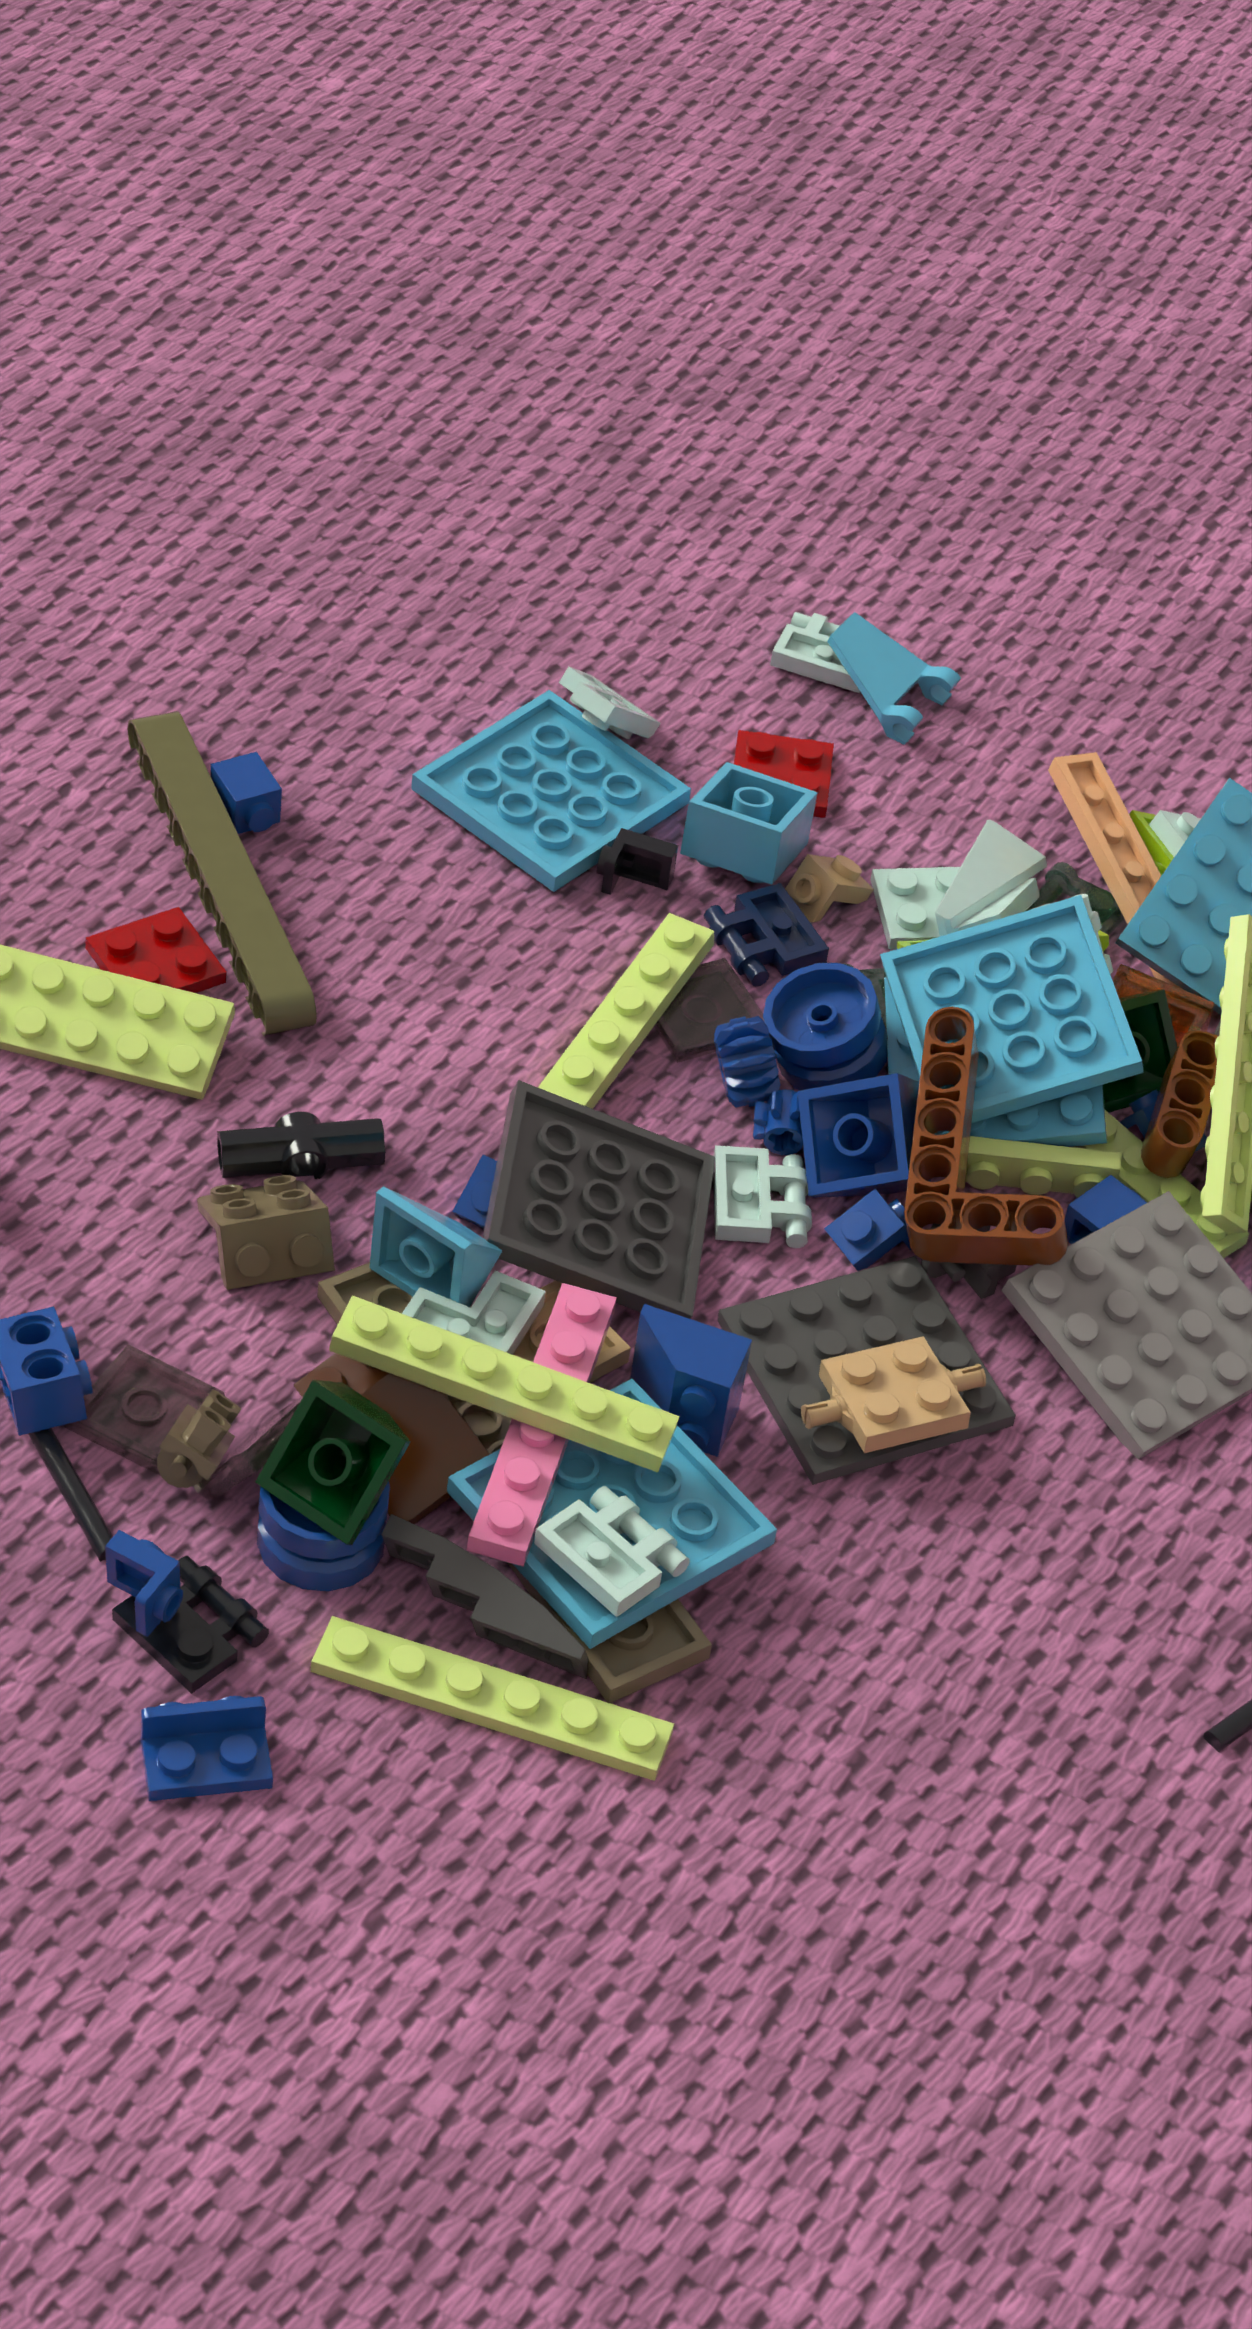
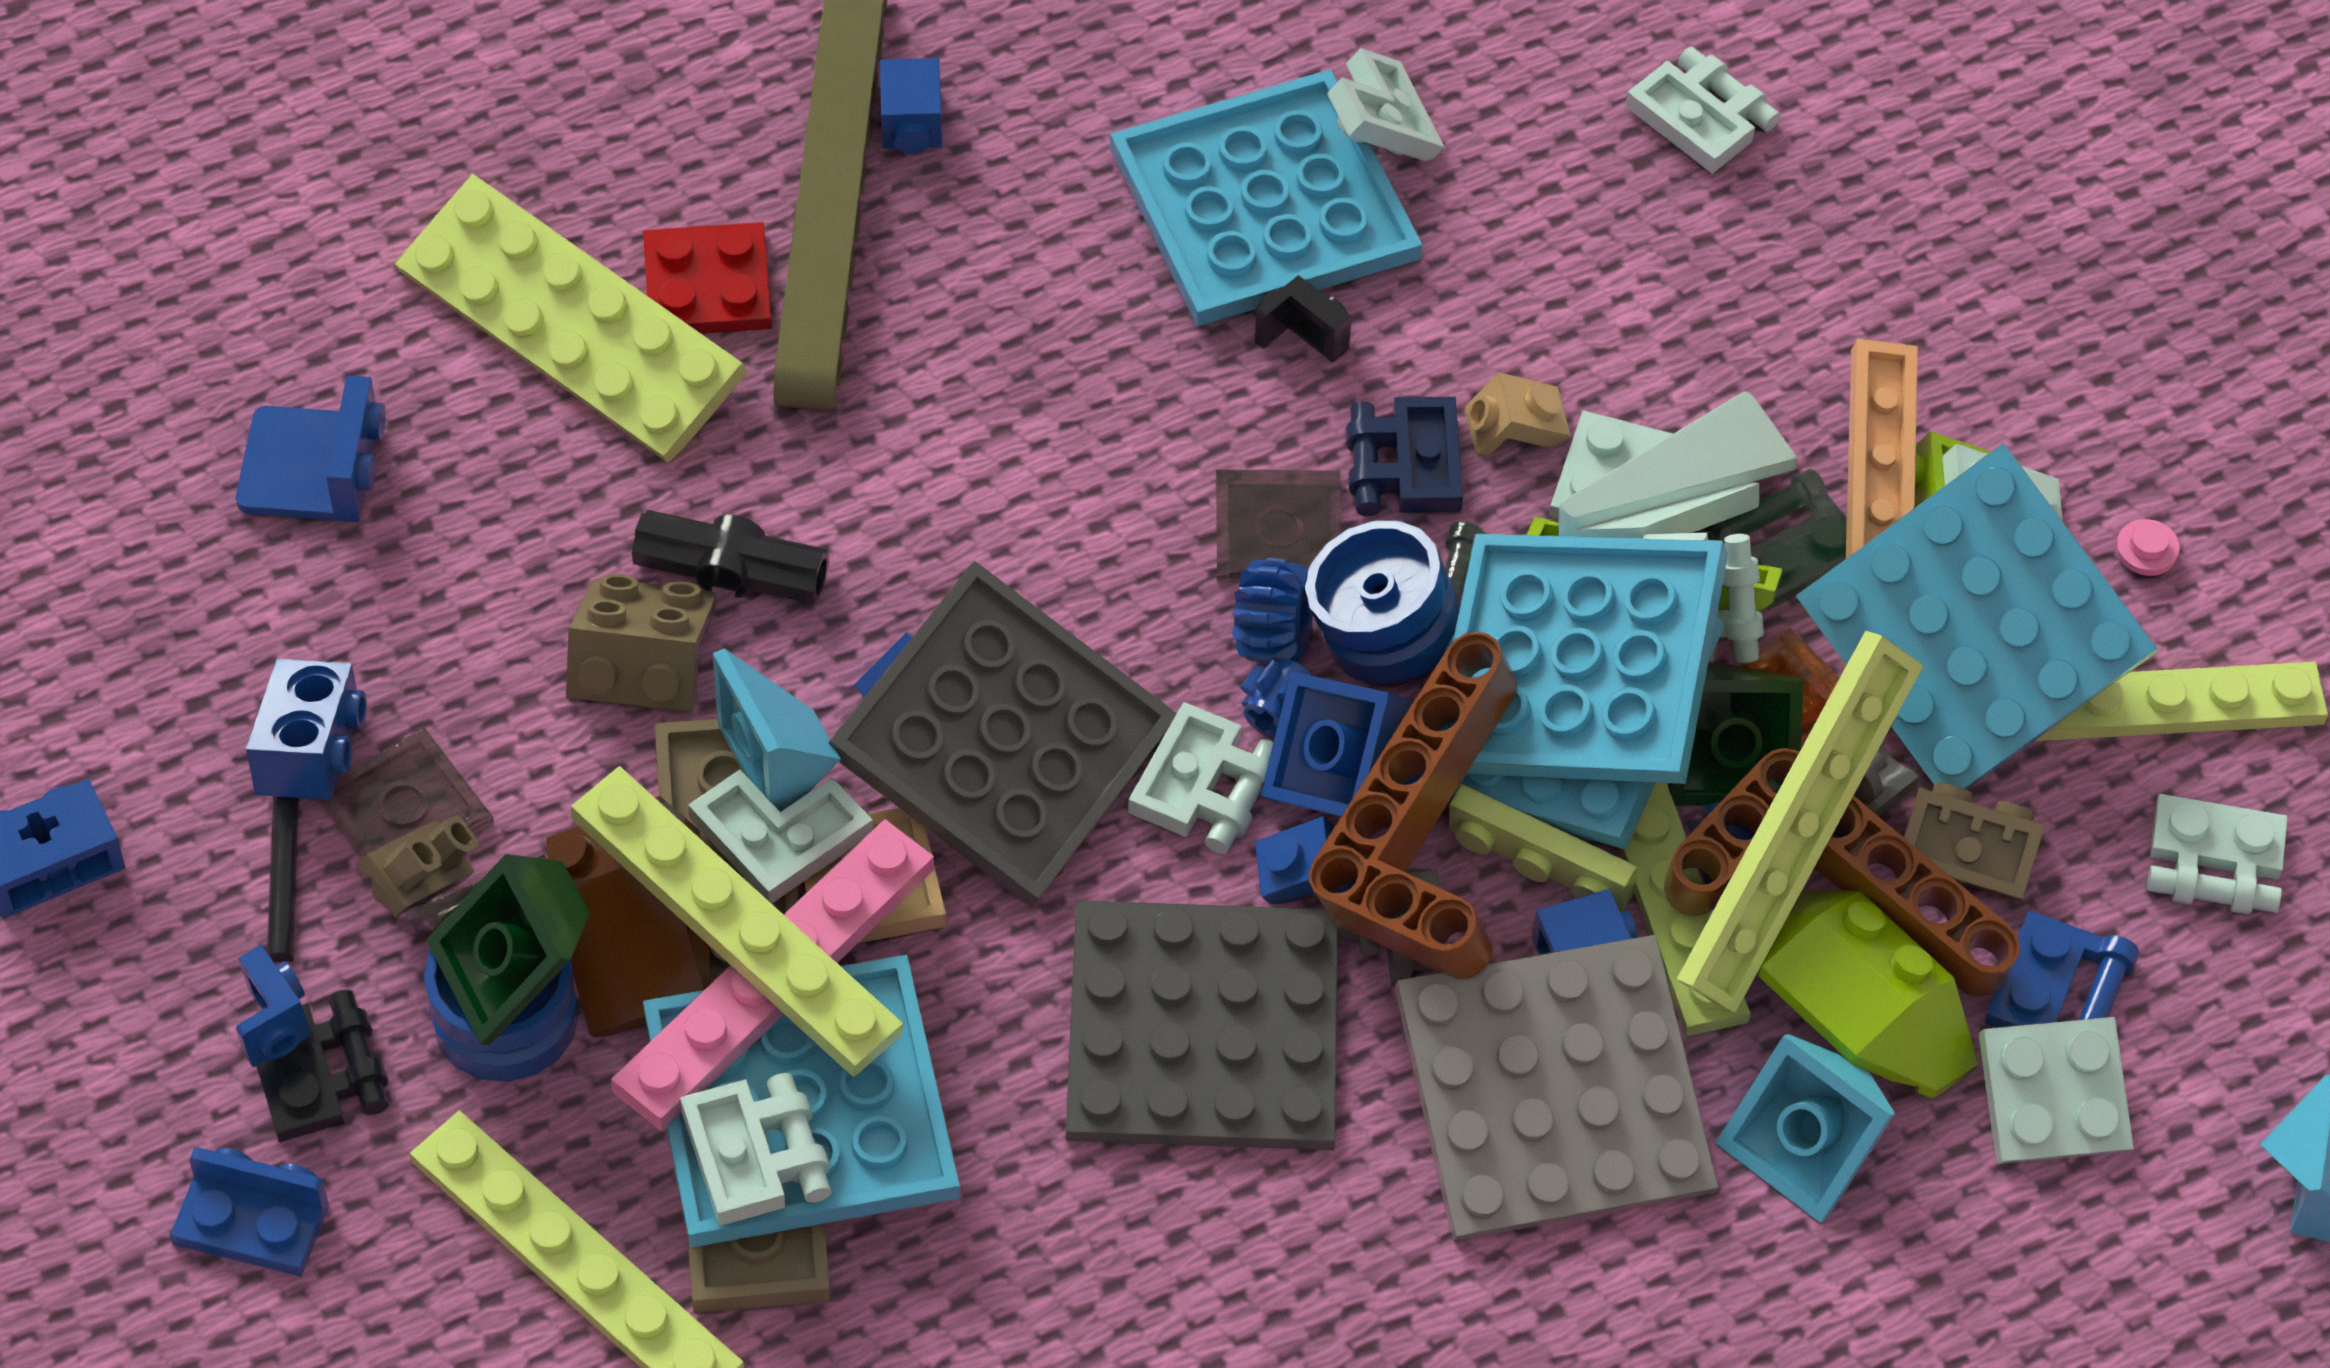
camera: 30 degrees right, 10 degrees up
(499, 1606) = (629, 1160): dark grey slope -> none
(629, 1011) = (1172, 513): yellowish green plate -> none
(691, 1373) = (980, 981): blue slope -> none
(748, 823) = (1454, 311): medium azure brick -> none
(790, 760) = (1552, 253): red plate -> none
(886, 673) = (1747, 155): medium azure flag -> none
(893, 1394) = (1194, 1071): tan plate -> none

